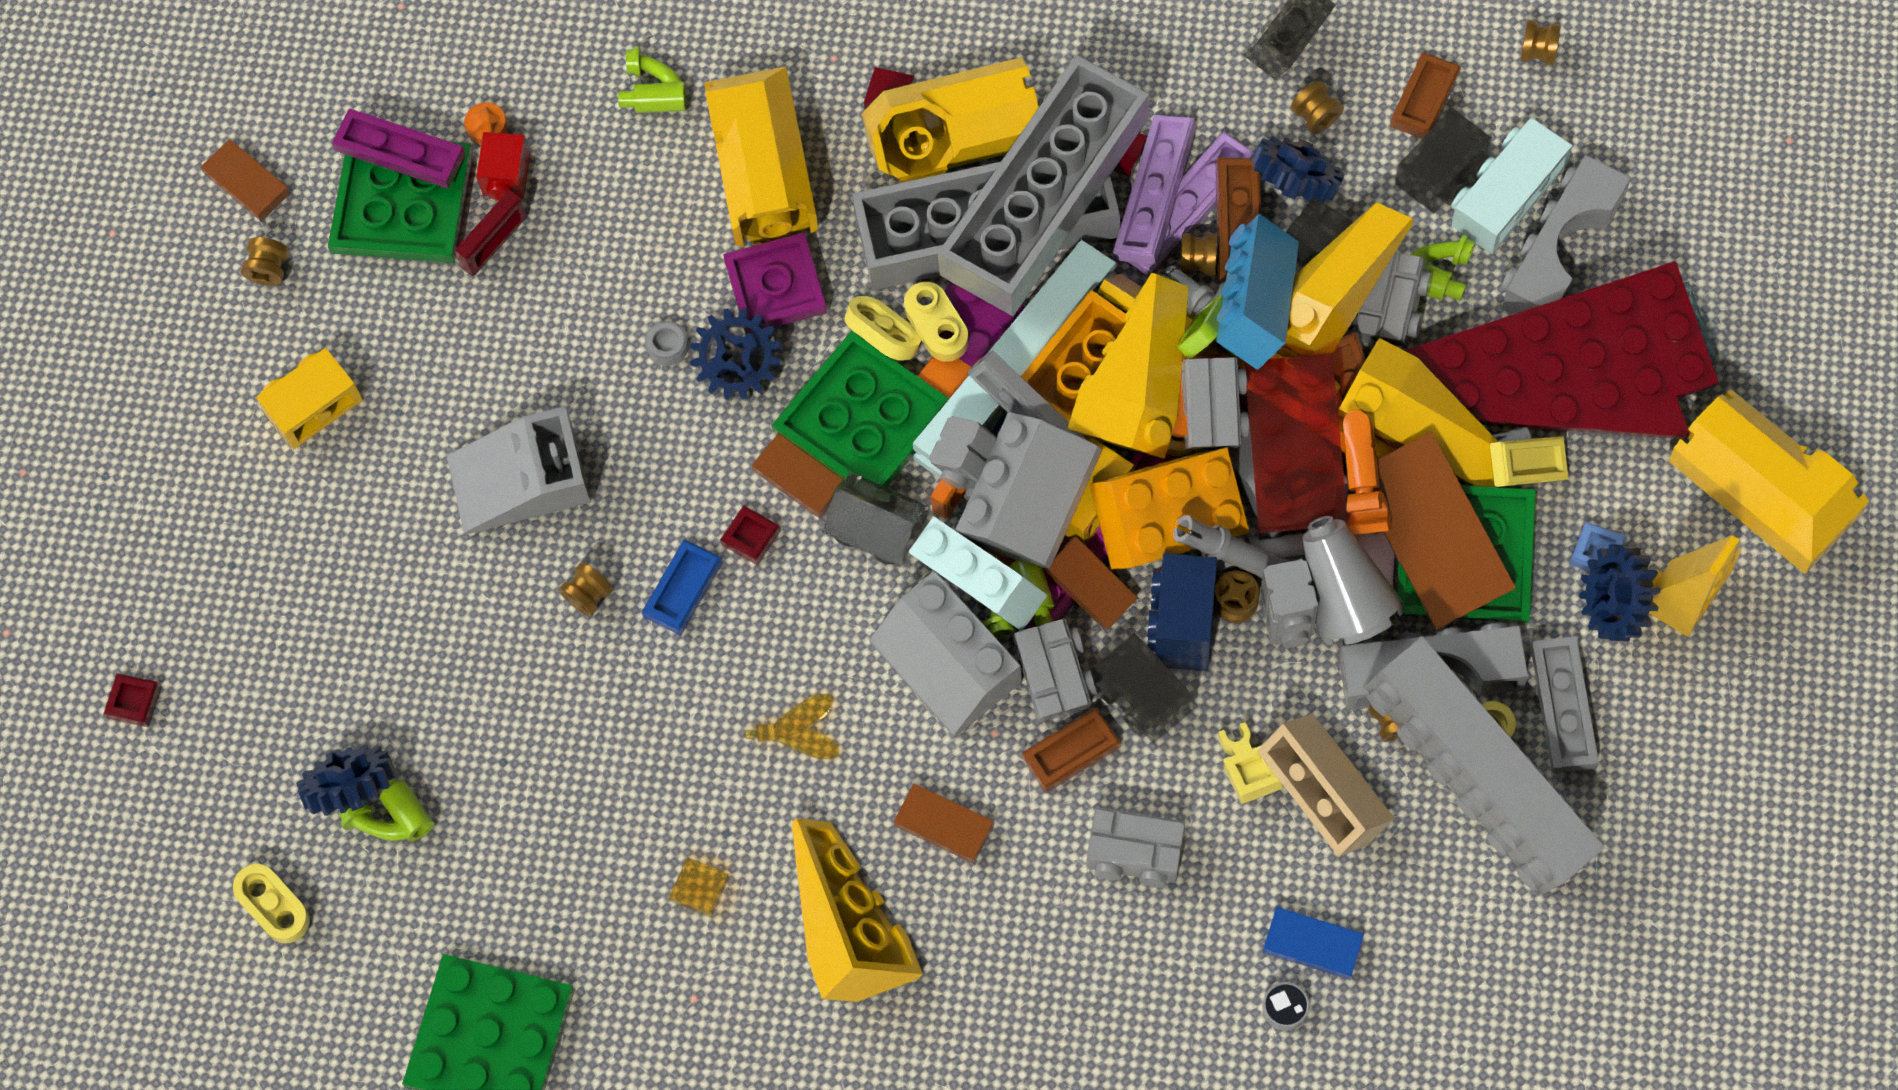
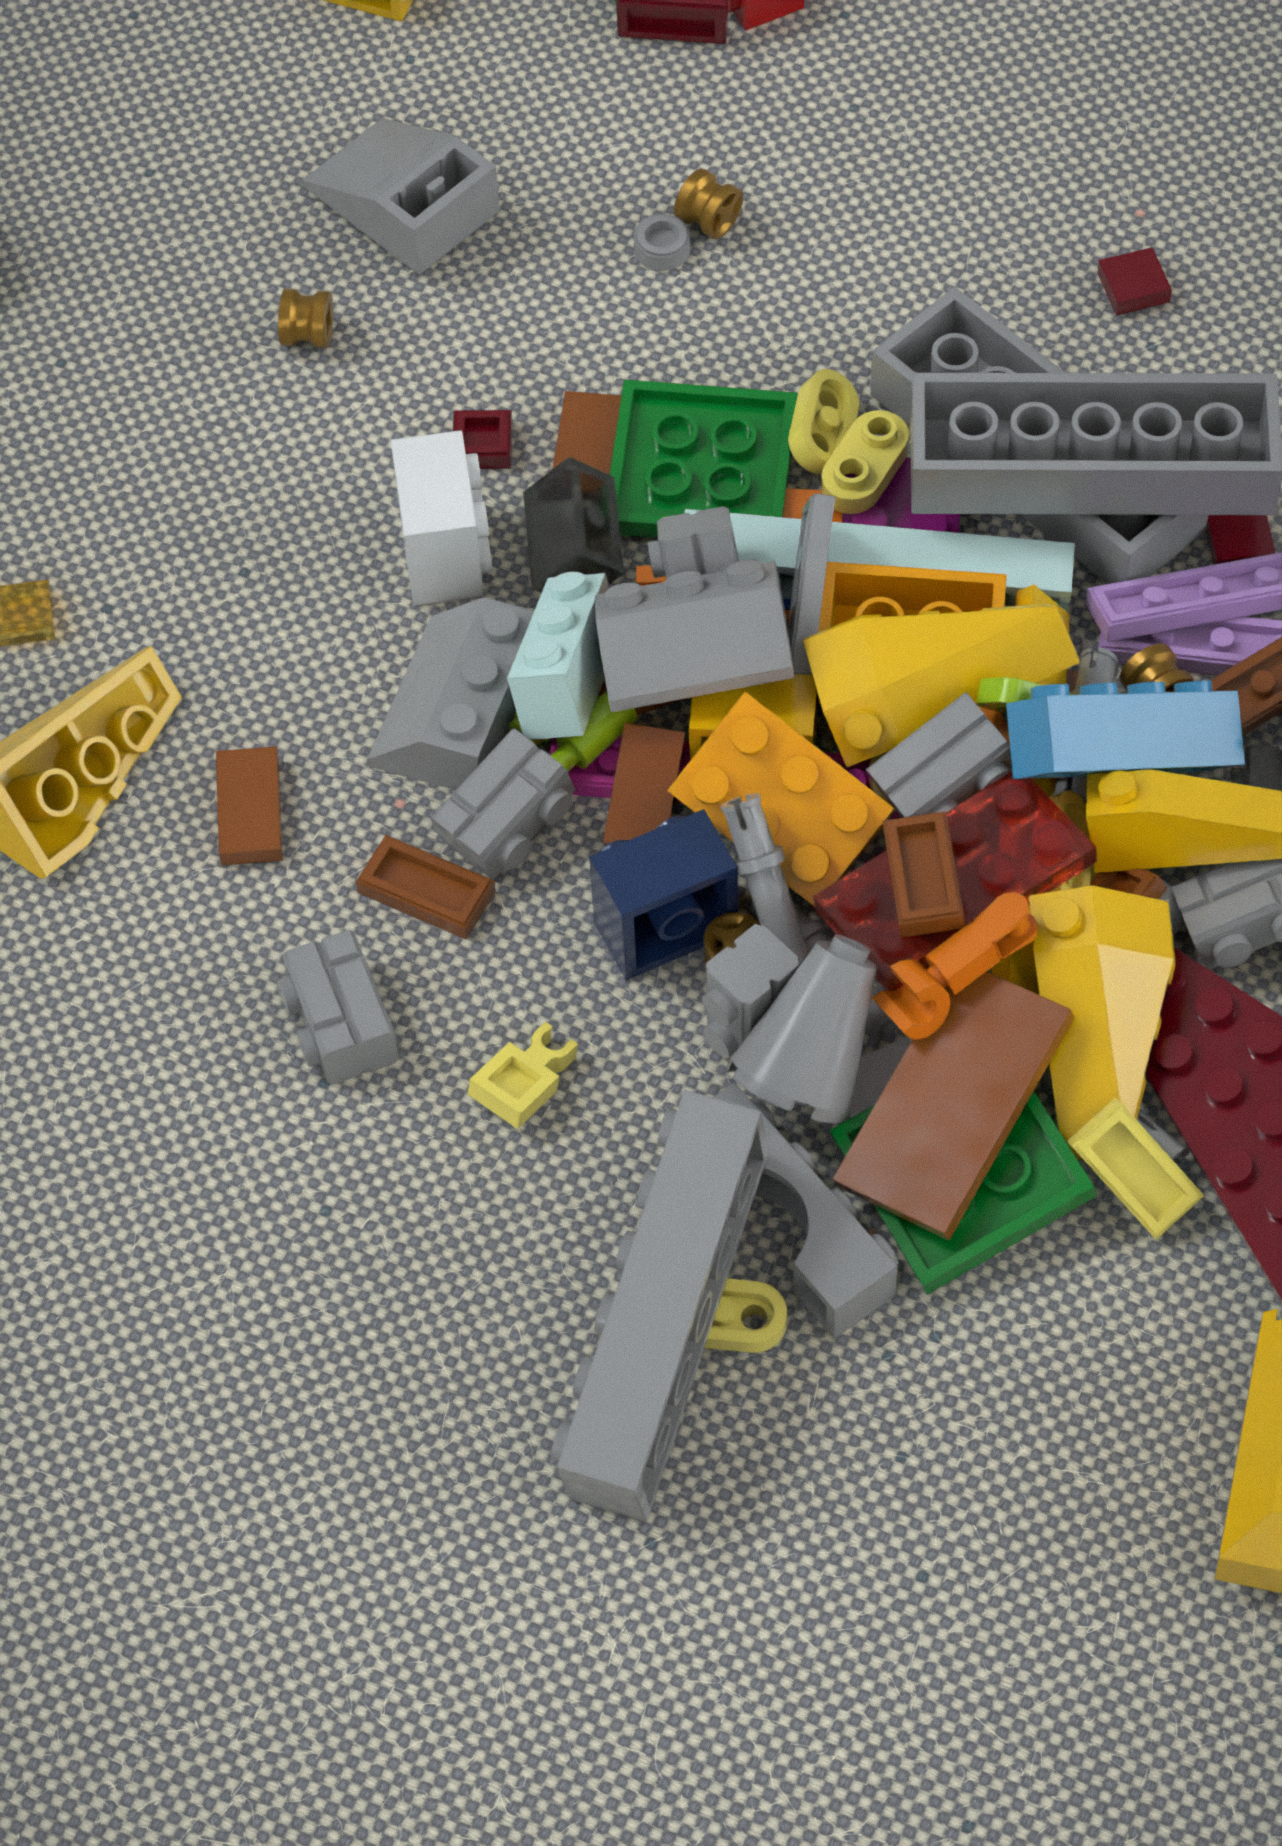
camera: 55 degrees right, 10 degrees down
(652, 97) = (954, 73): lime plant -> none
(663, 298) = (708, 203): none -> pearl gold wheel
(682, 587) = (374, 410): blue tile -> none
(752, 343) = (686, 302): dark blue gear -> none
(761, 156) = (941, 188): yellow brick -> none
(776, 281) = (806, 296): magenta plate -> none
(792, 730) = (272, 598): clear yellow piece -> none
(816, 591) = (441, 517): none -> white brick
(949, 120) = (1105, 316): yellow brick -> none
(1142, 689) = (544, 914): clear smoke brick -> none
(1285, 1006) = (237, 1278): tile -> none
(1295, 456) = (923, 874): none -> dark orange tile
(1313, 943) = (338, 1267): blue tile -> none
(1325, 784) = (544, 1163): tan brick -> none
(1564, 704) = (837, 1386): light grey plate -> none
(1590, 541) = (1083, 1325): medium blue tile -> none
(1619, 592) = (1022, 1357): dark blue gear -> none
(1693, 583) = (1103, 1441): yellow wedge -> none

